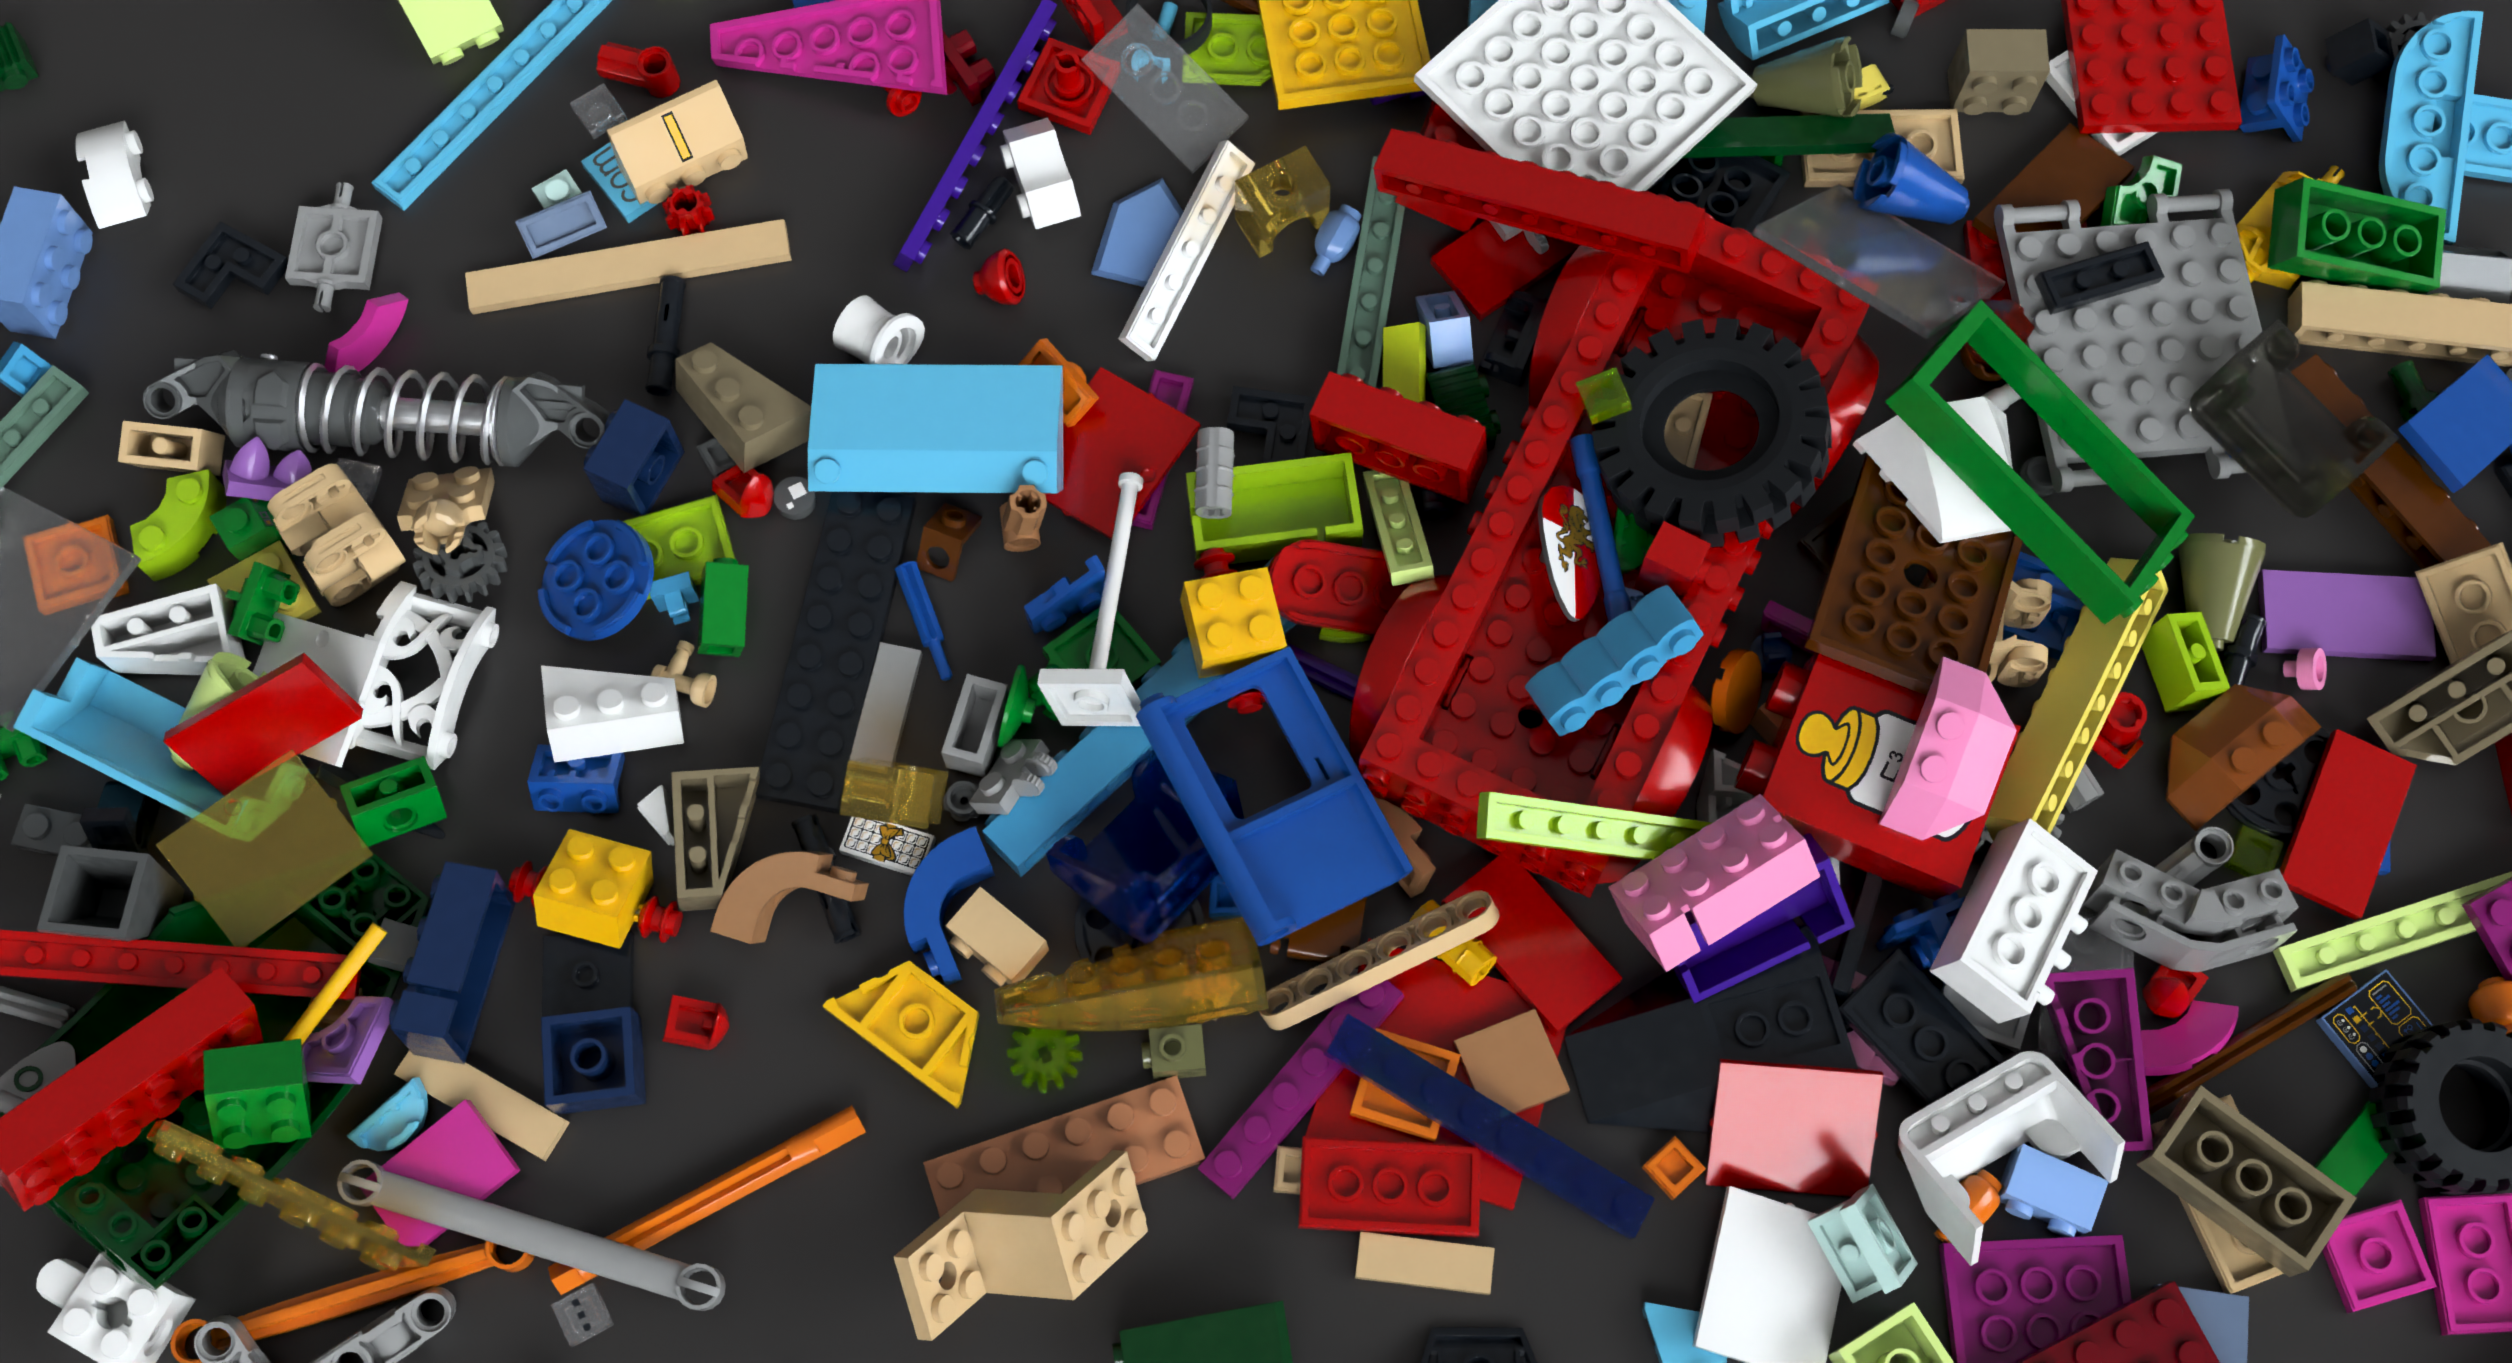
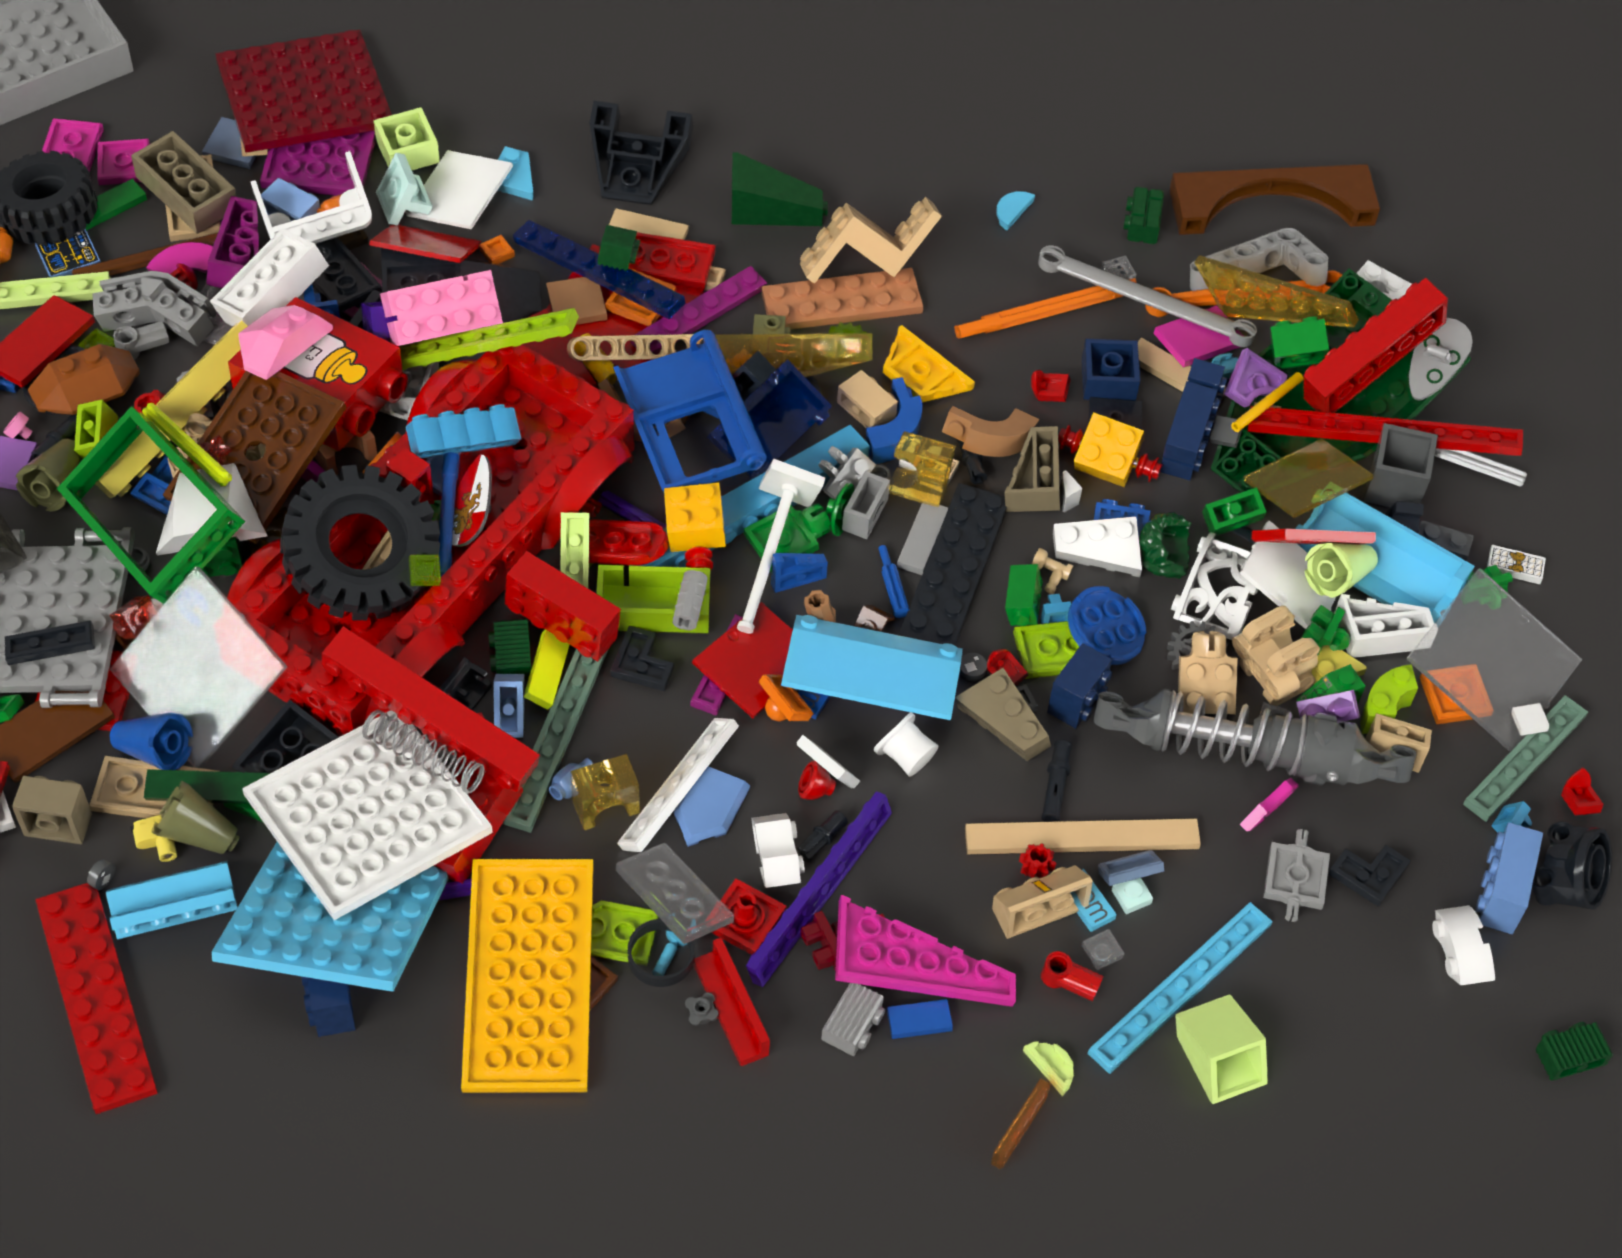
camera: 175 degrees left, 15 degrees down
(506, 717) = (1165, 545): none -> dark green hair
(984, 291) = (827, 762): none -> white tile
(1191, 894) = (752, 374): none -> black brick
(1456, 119) = (379, 727): none -> light grey piece
(1459, 1143) = (618, 247): none -> dark green brick
(1981, 557) = (216, 448): none -> clear red plant
(2027, 566) = (187, 444): none -> neon yellow axle

